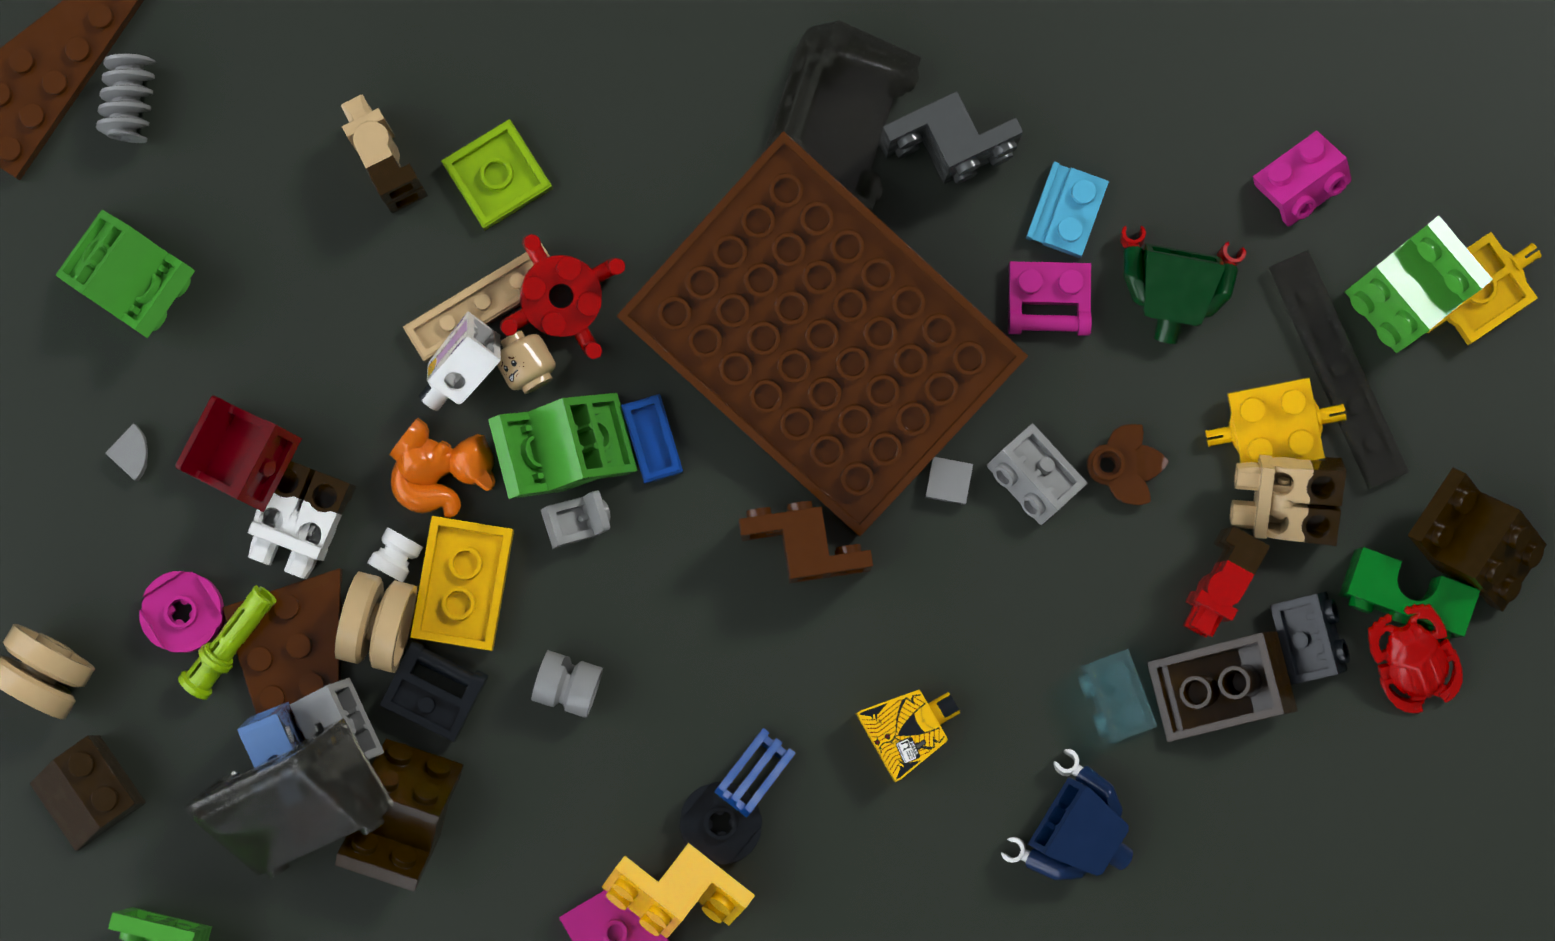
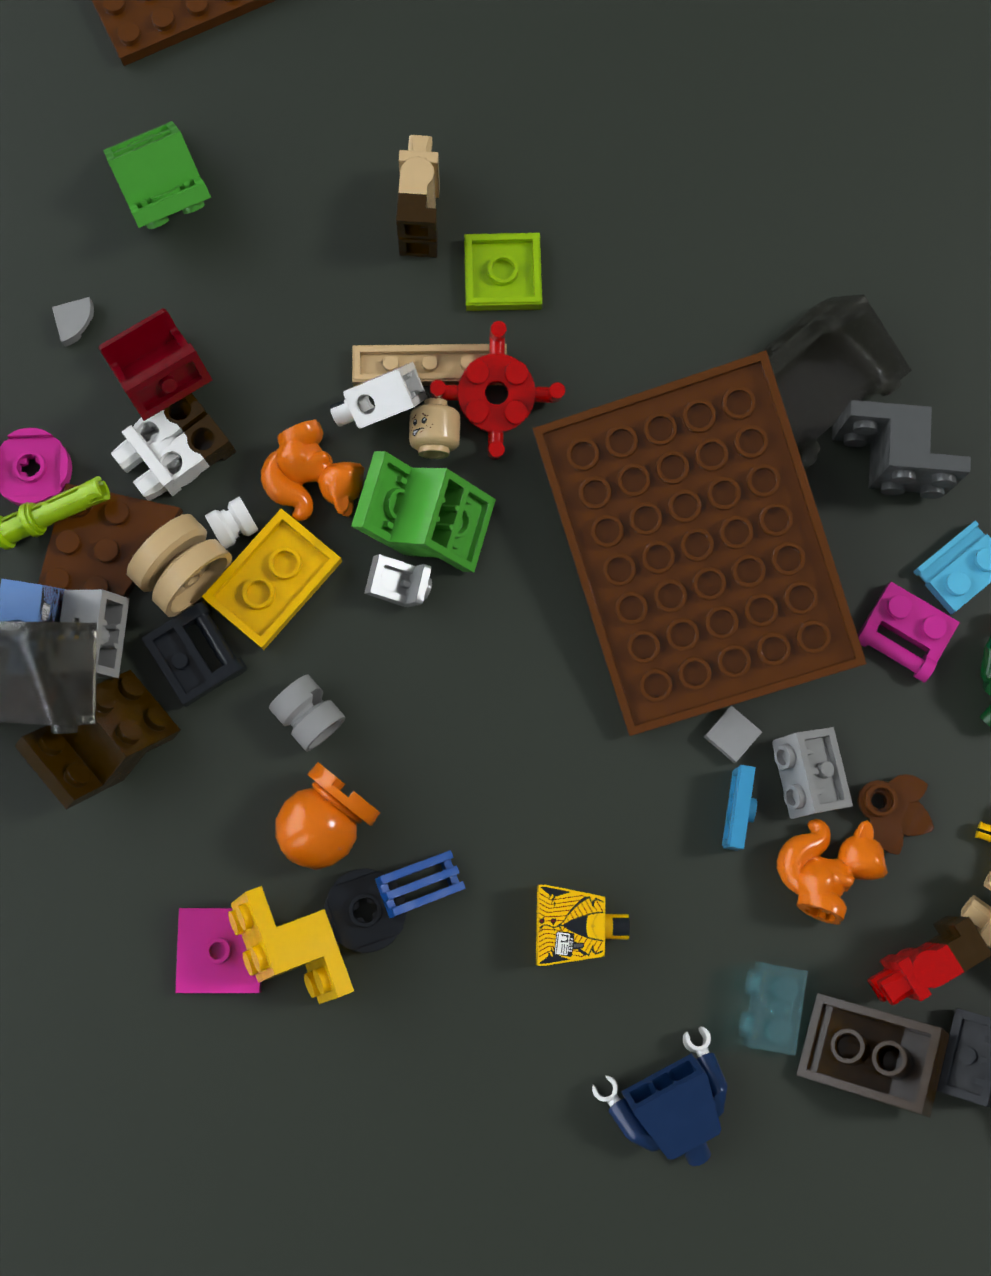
camera: 30 degrees right, 5 degrees down
(124, 97) = (242, 41): light grey piece -> none
(638, 771) = (321, 822): none -> orange tile
(652, 438) = (501, 554): blue tile -> none
(805, 542) = (580, 711): reddish brown bracket -> none
(992, 543) = (740, 808): none -> dark azure plate
(1098, 563) = (824, 880): none -> orange animal

